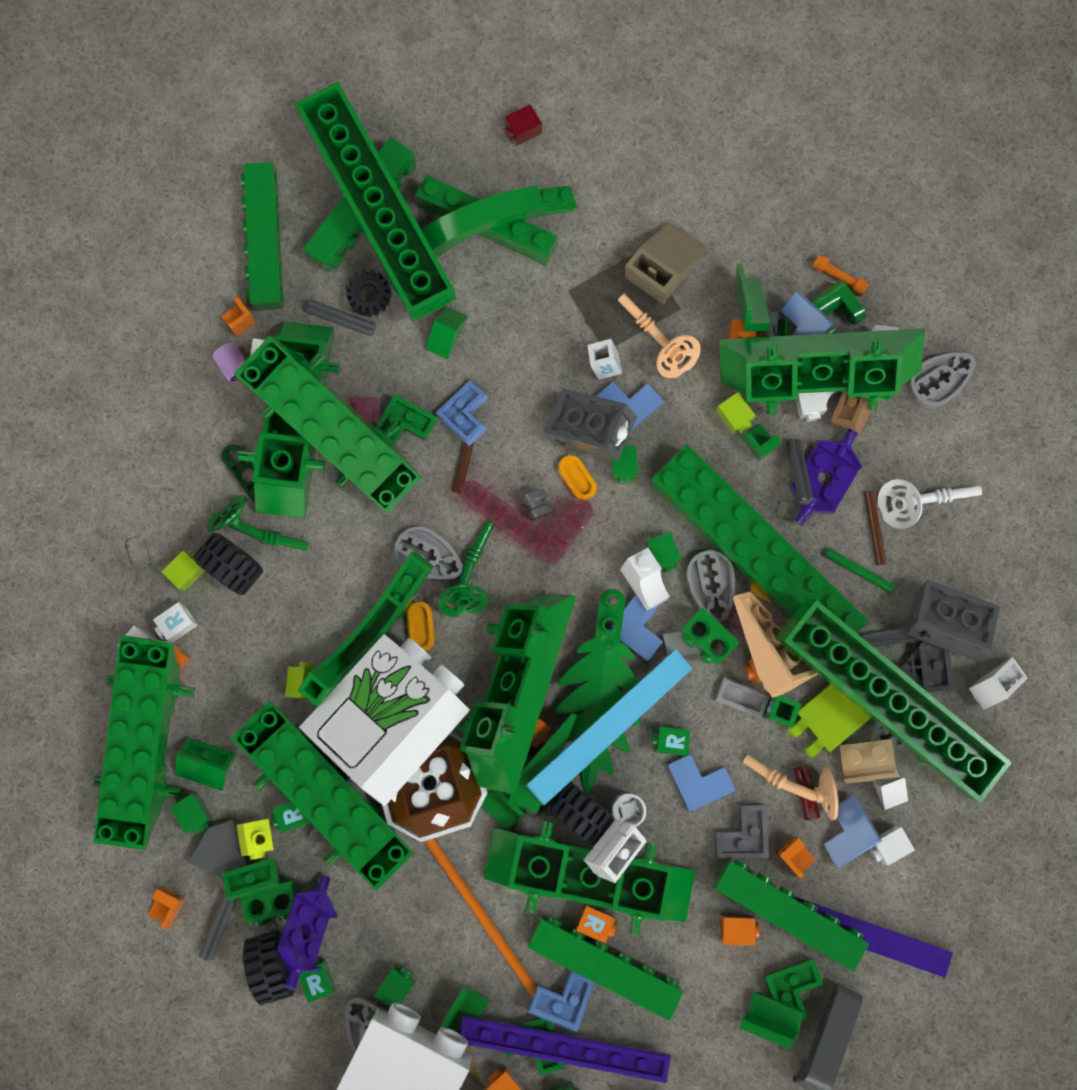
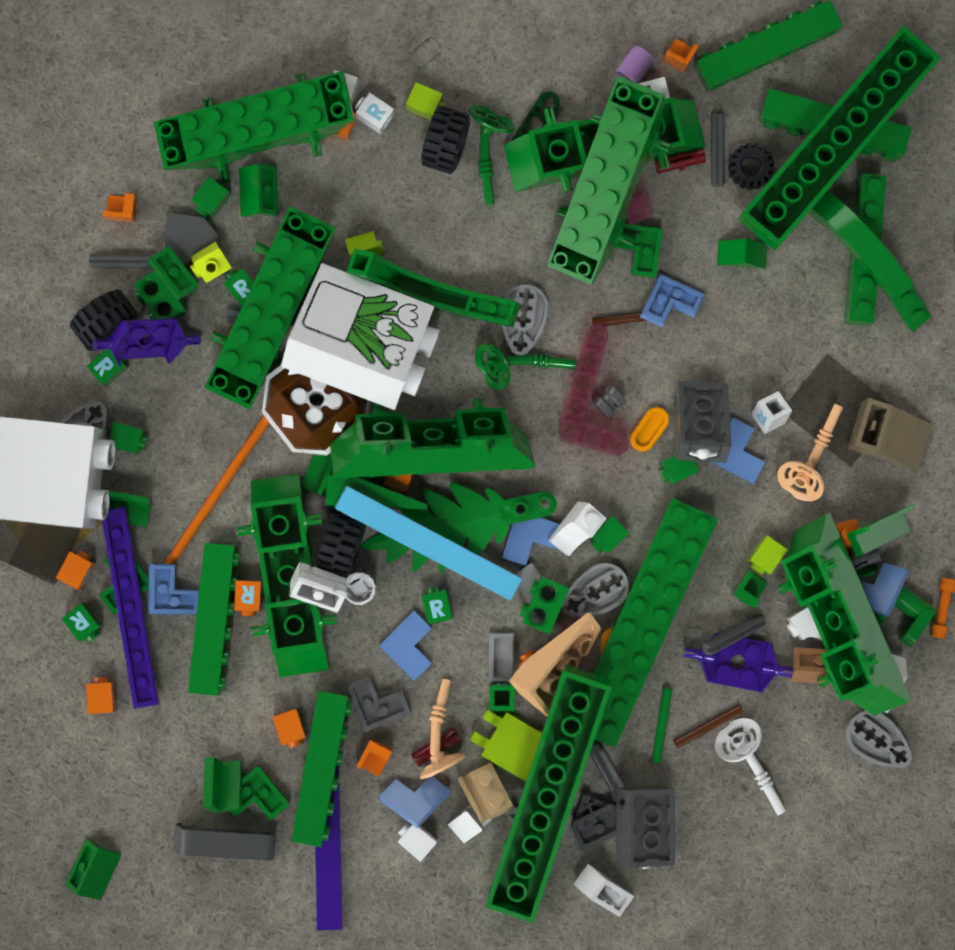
camera: 65 degrees right, 5 degrees up
(337, 353) = (682, 160): none -> dark red pin
(421, 625) = (456, 337): light orange tile -> none

